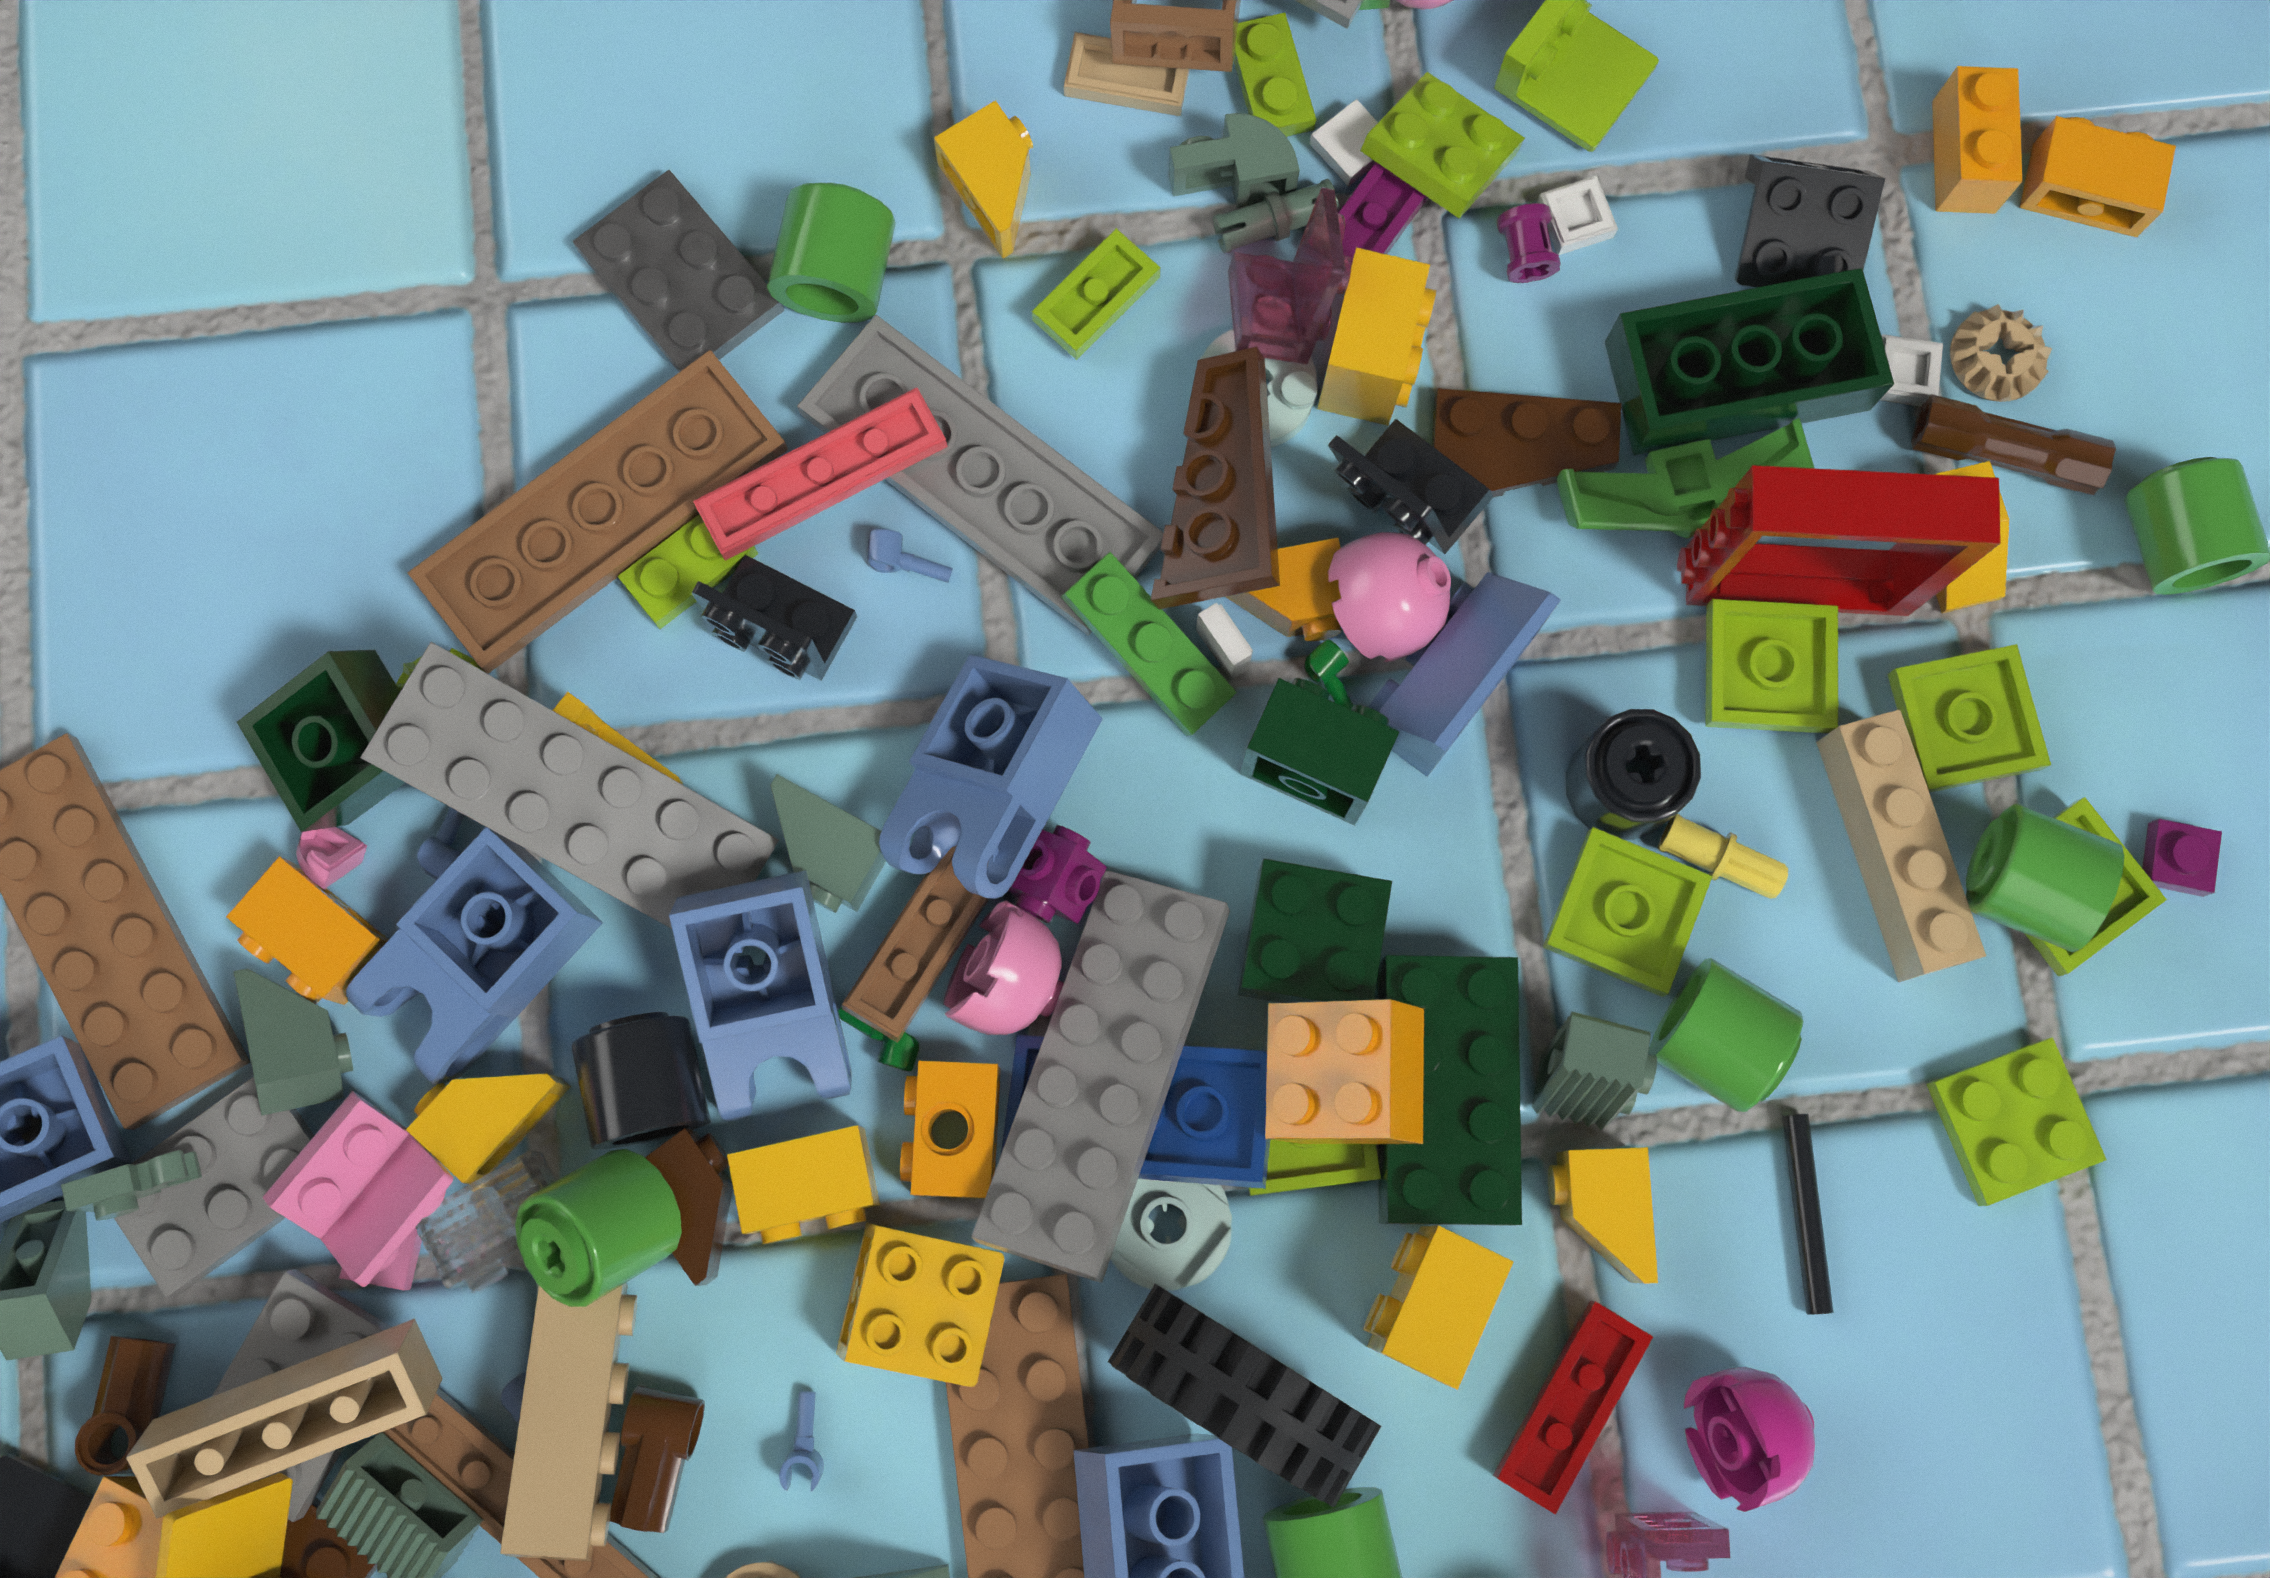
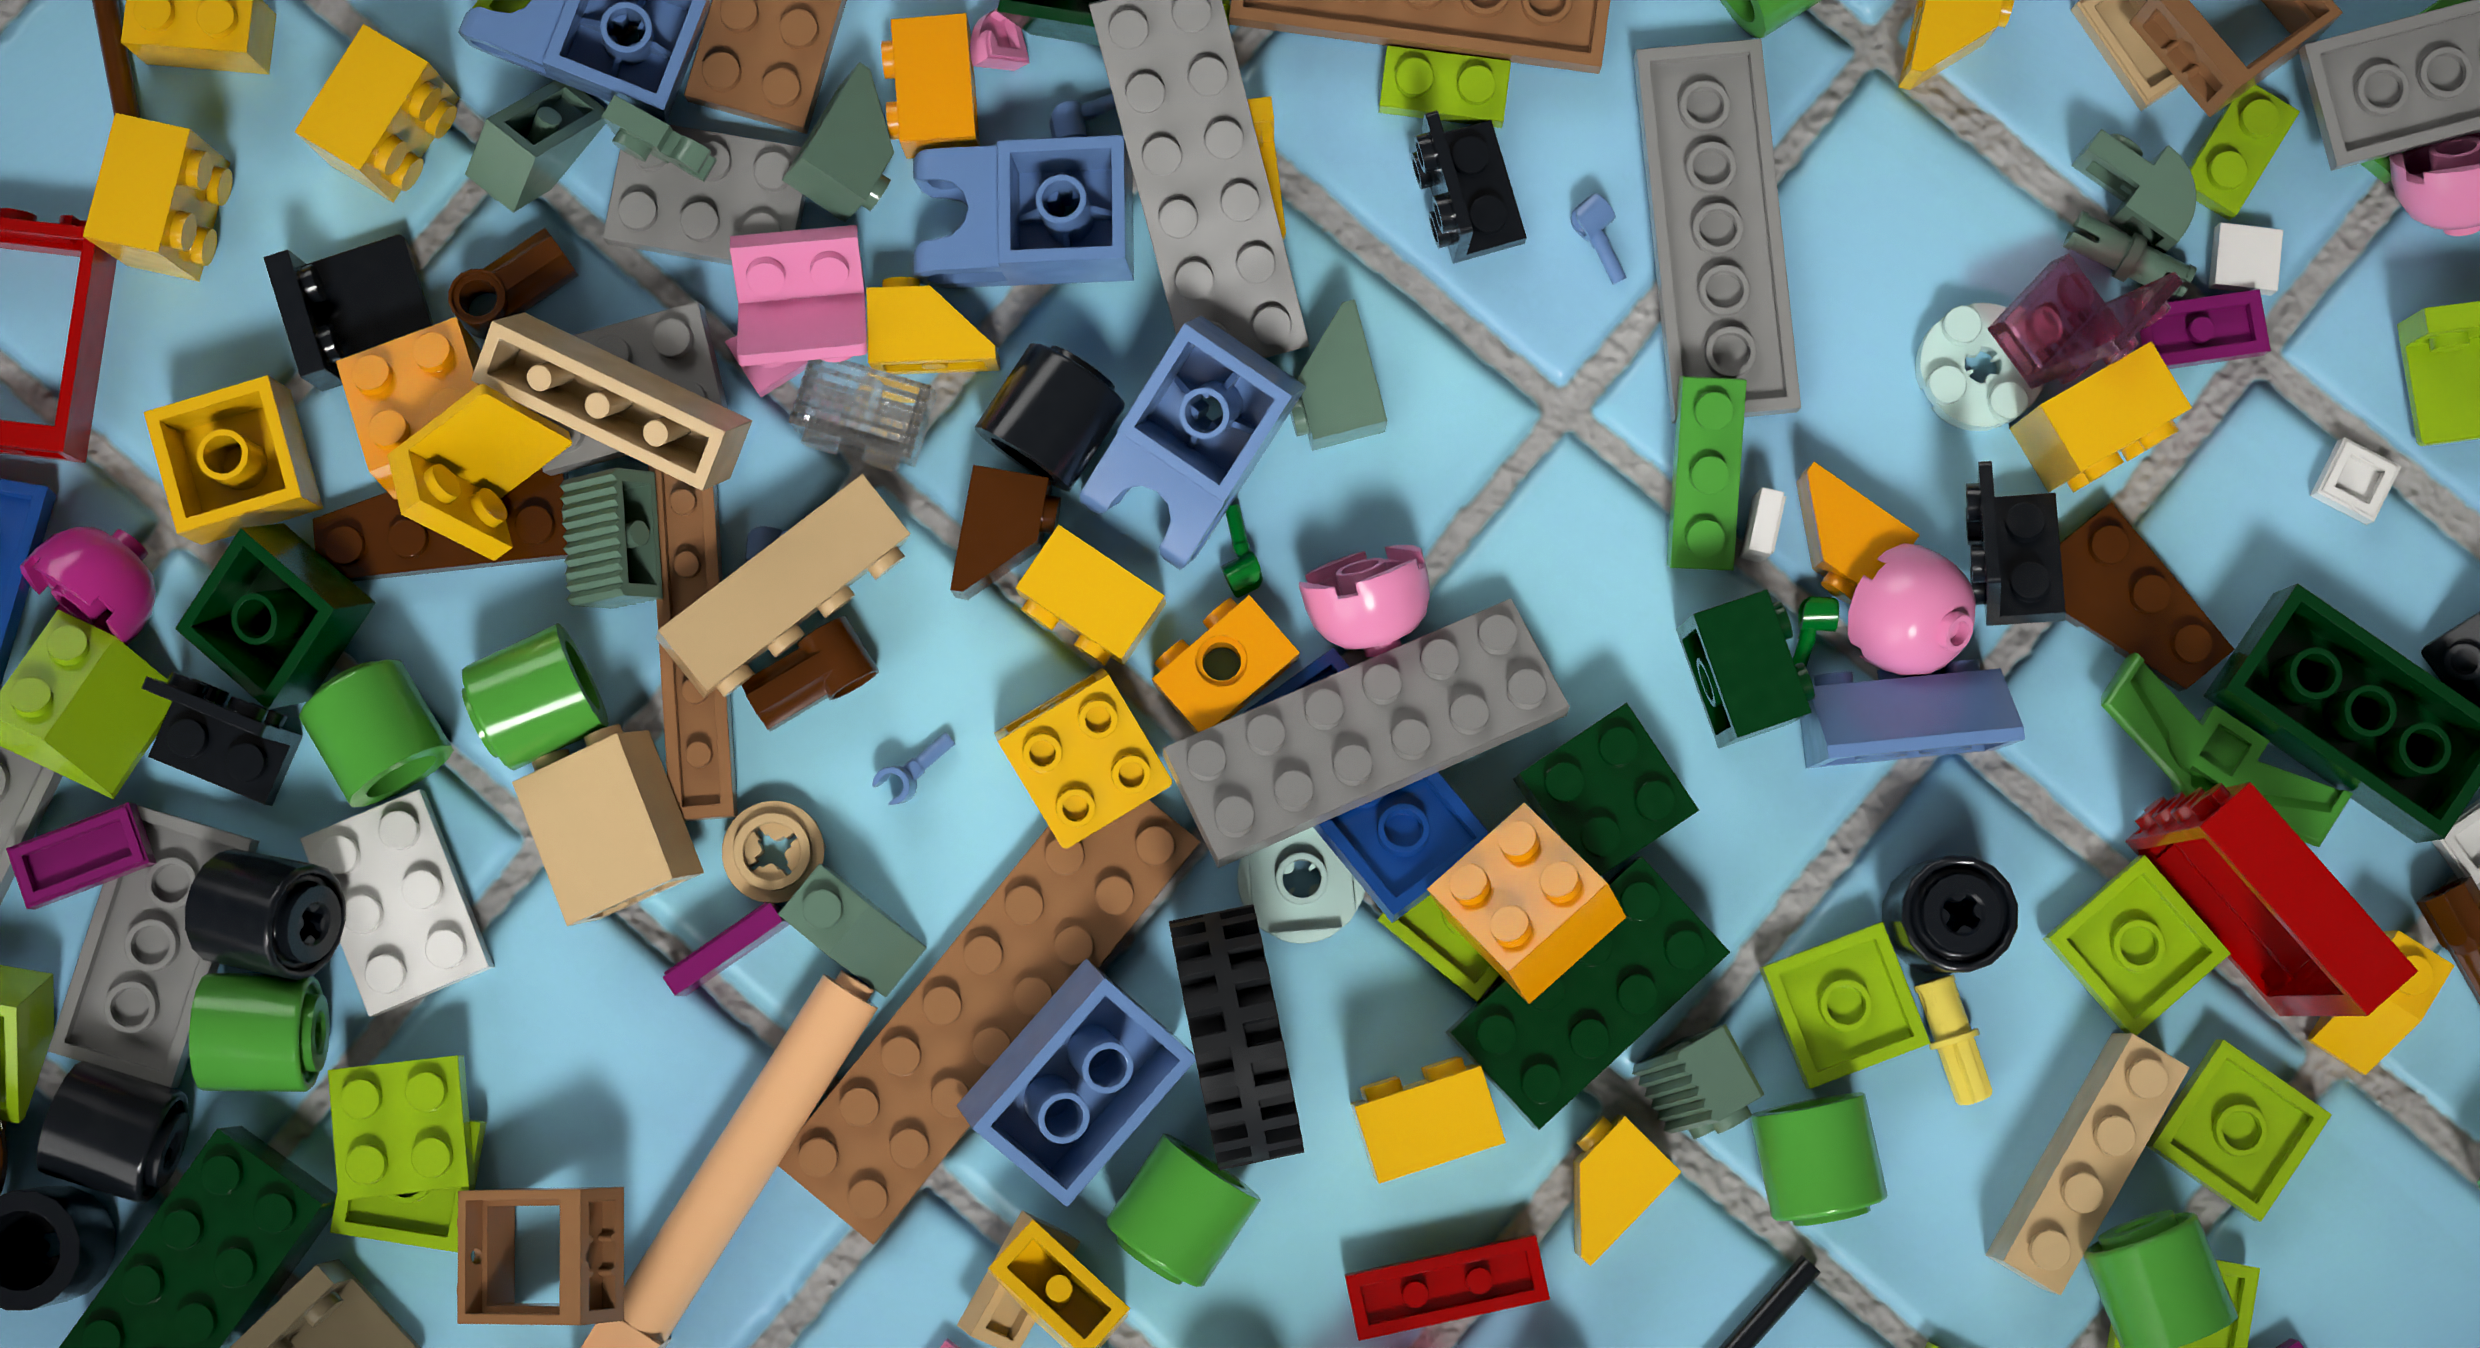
camera: 50 degrees right, 5 degrees up
(598, 1227) = (928, 484): bright green piece -> none
(820, 473) = (1603, 116): coral tile -> none
(915, 952) = (1364, 511): medium nougat tile -> none
(989, 774) = (1499, 449): medium blue brick -> none
(1058, 876) = (1470, 559): magenta brick -> none
(1096, 294) = (1936, 183): lime plate -> none
(1224, 502) = (1875, 417): reddish brown wing -> none
(1442, 144) = (2309, 328): lime plate -> none
(1528, 243) = (2294, 464): magenta bush -> none

